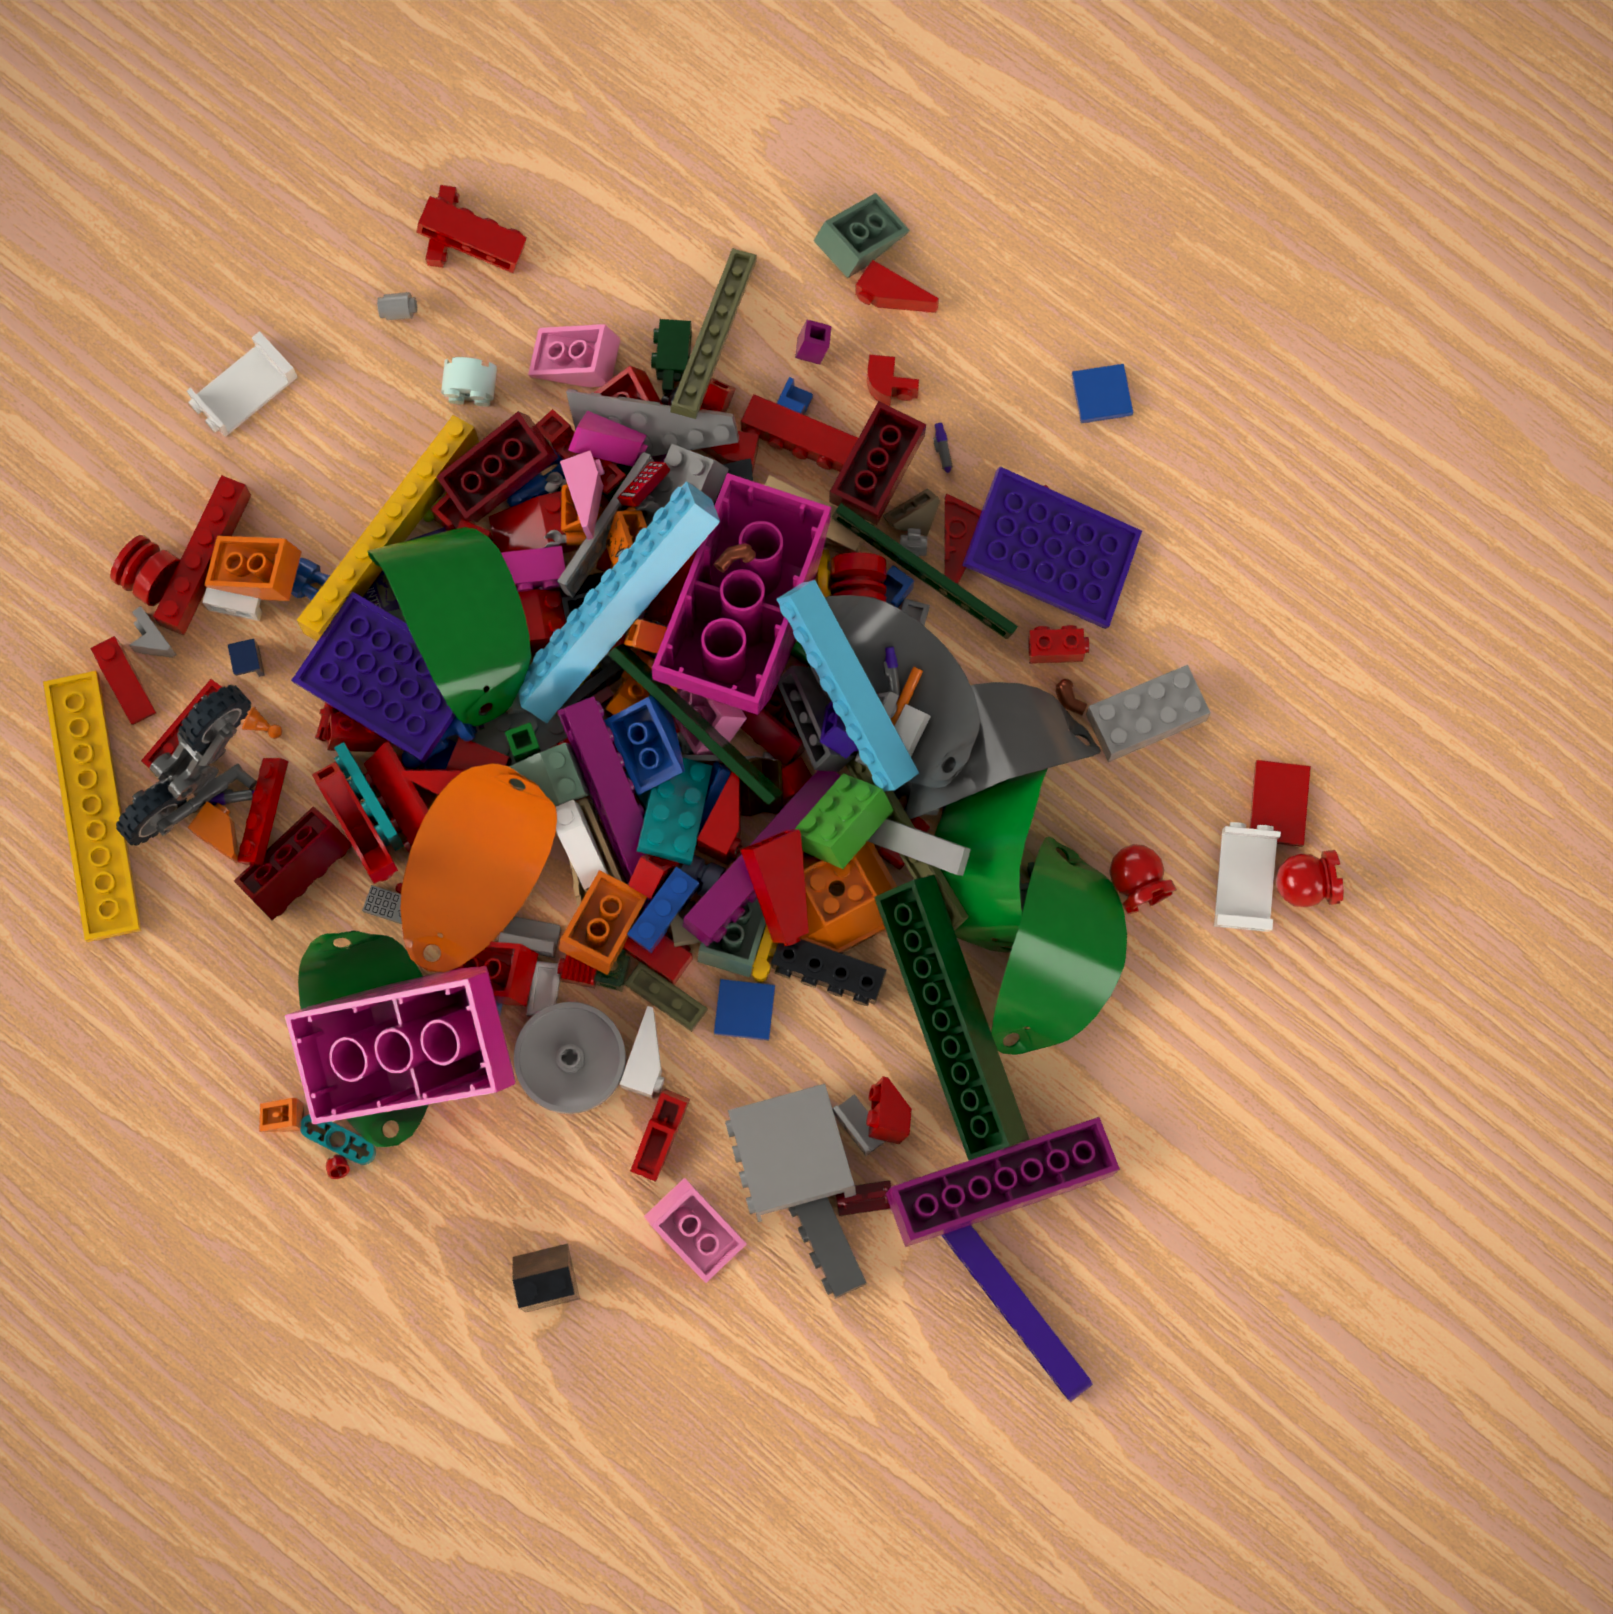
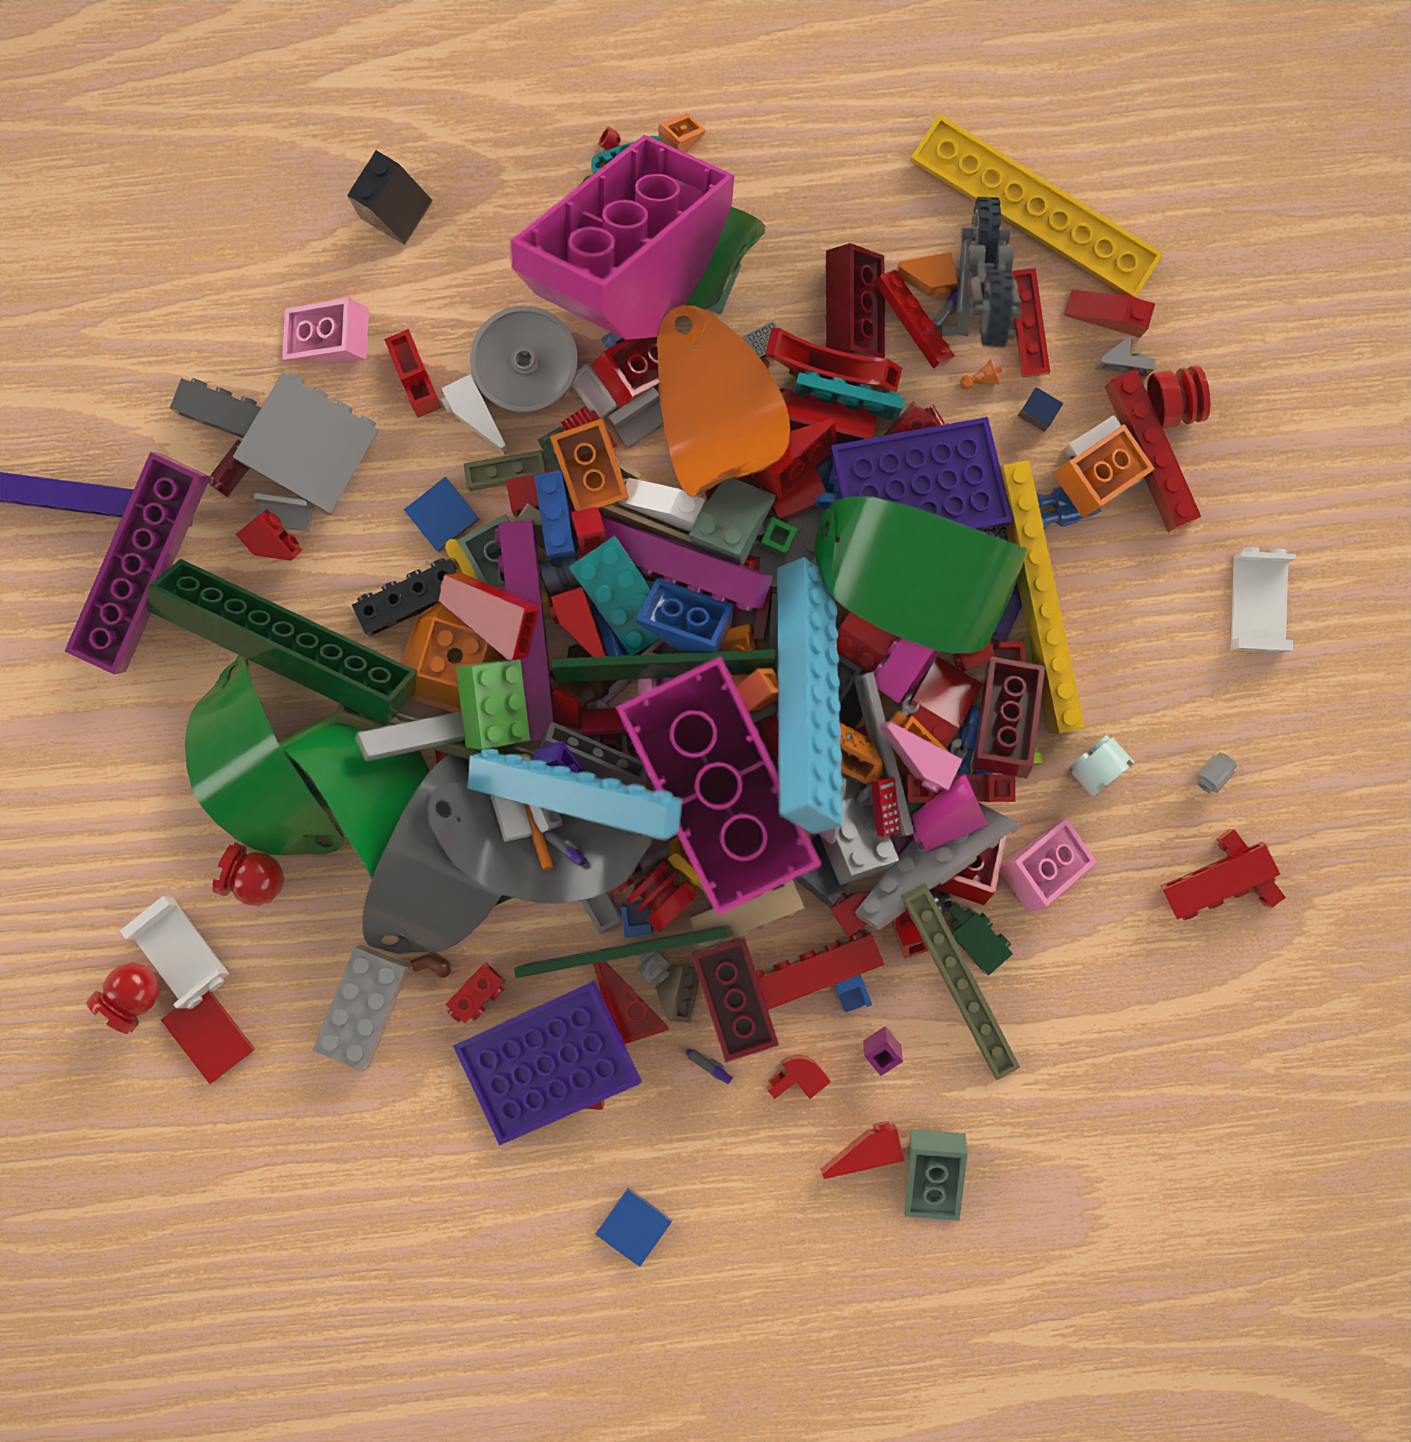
camera: 135 degrees right, 10 degrees up
(732, 553) = (748, 805): copper arm -> none

